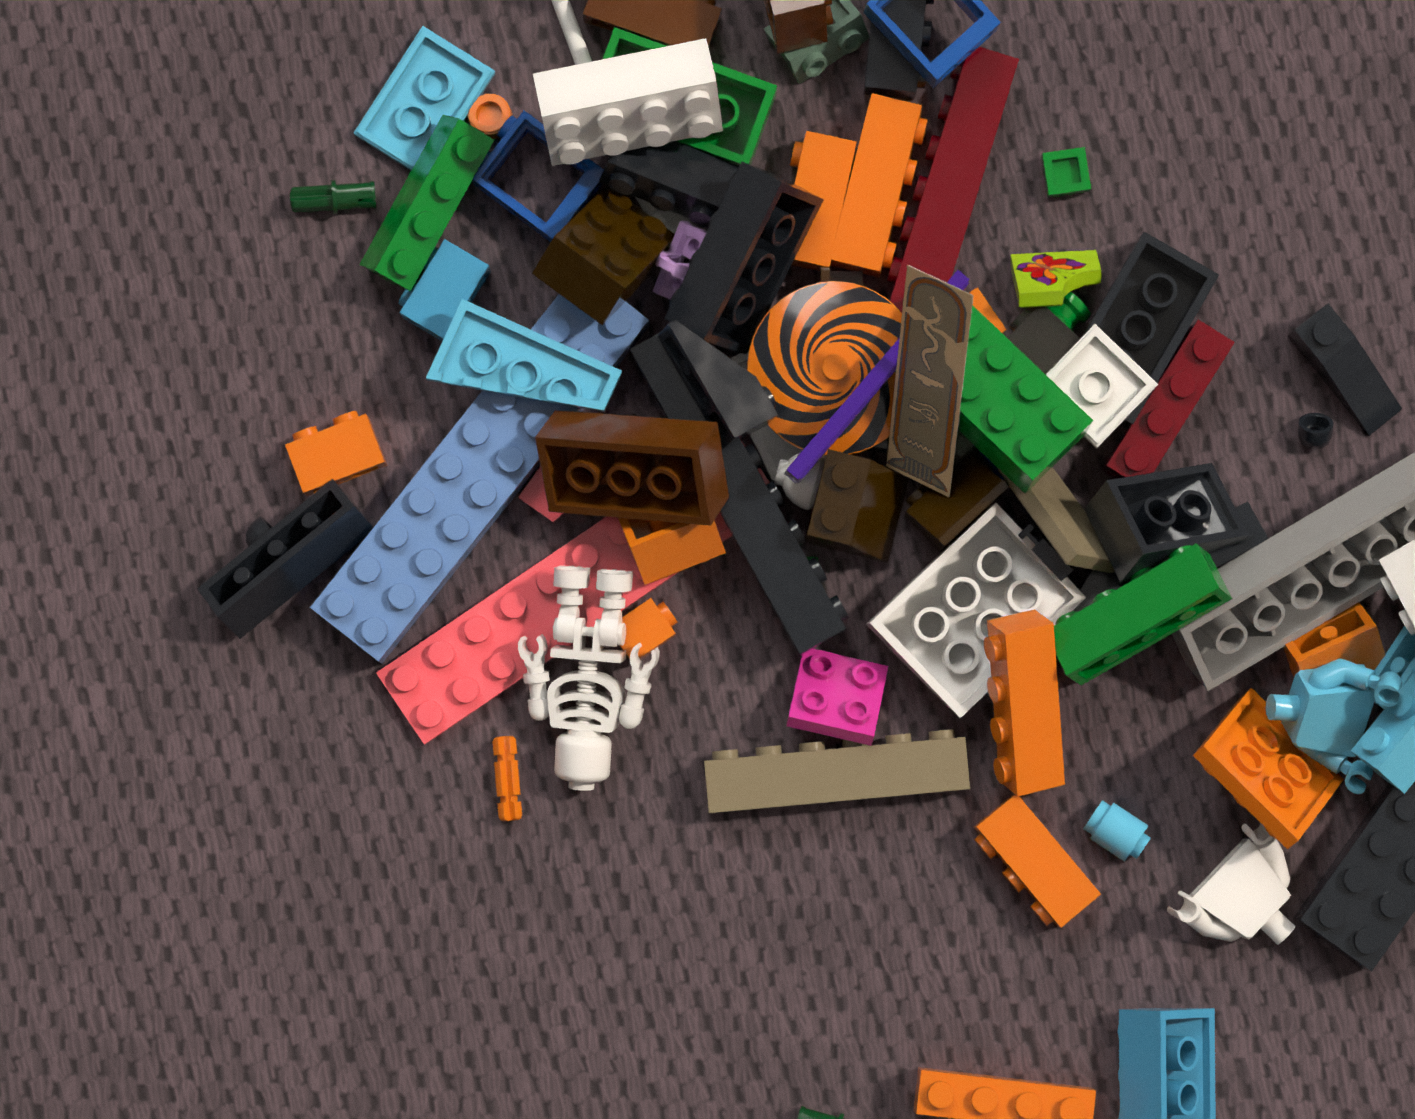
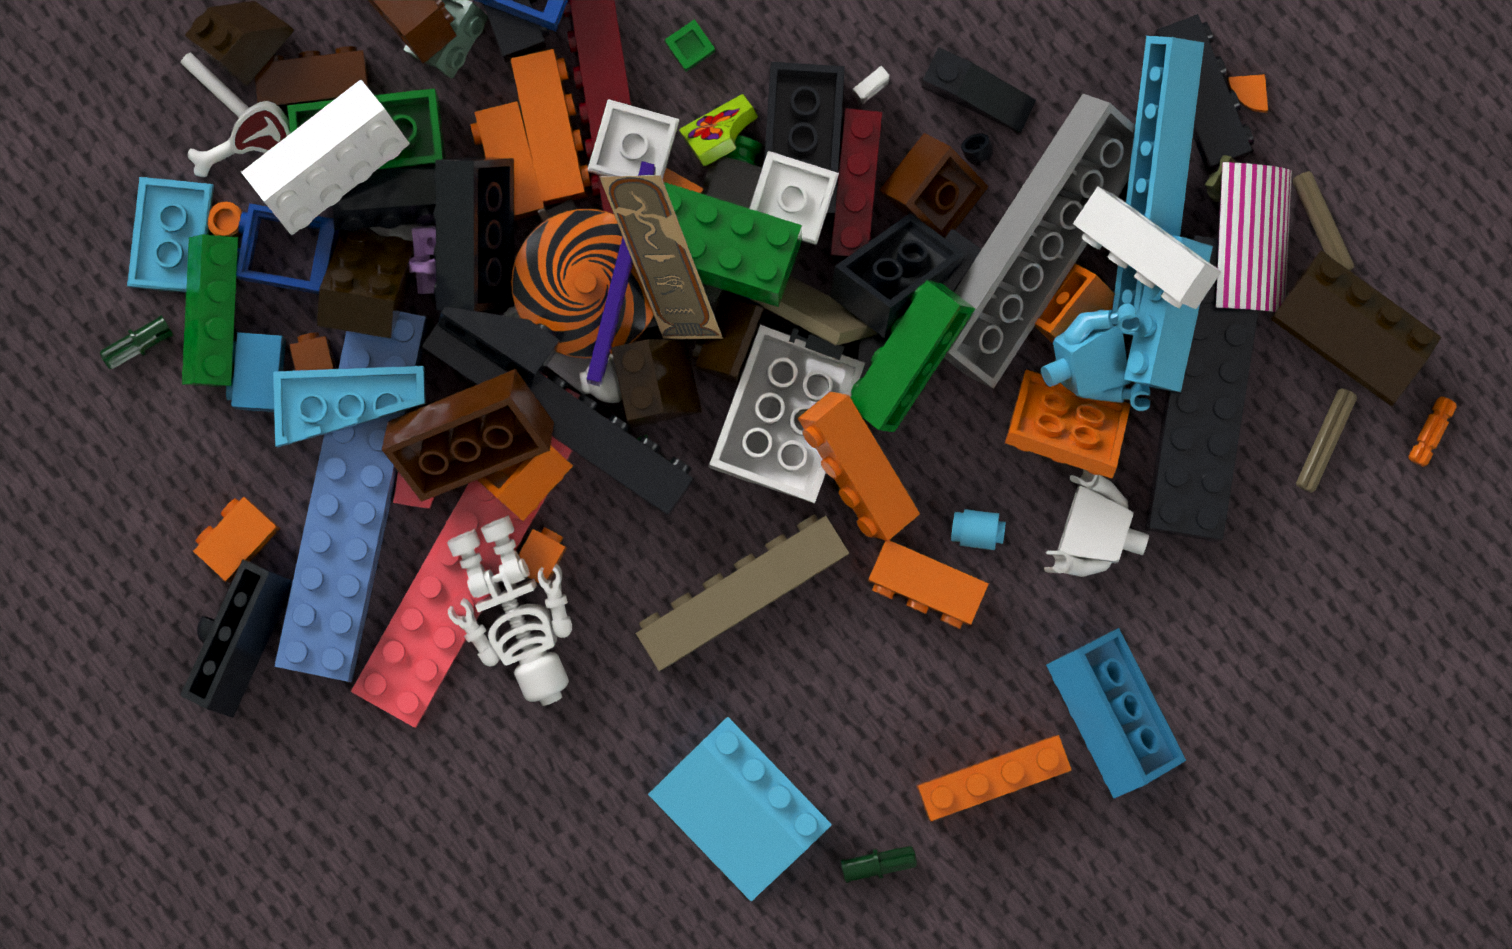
camera: 25 degrees left, 0 degrees up
(507, 778) = (491, 722): orange axle -> none
(511, 299) = (312, 353): none -> dark orange brick
(571, 37) = (256, 129): none -> white piece
(721, 1000) = (739, 809): none -> medium azure slope
(837, 696) = (713, 533): dark pink plate -> none
(954, 239) = (630, 137): none -> white tile
(1236, 308) = (871, 85): none -> white tile
(1251, 446) = (934, 185): none -> reddish brown slope

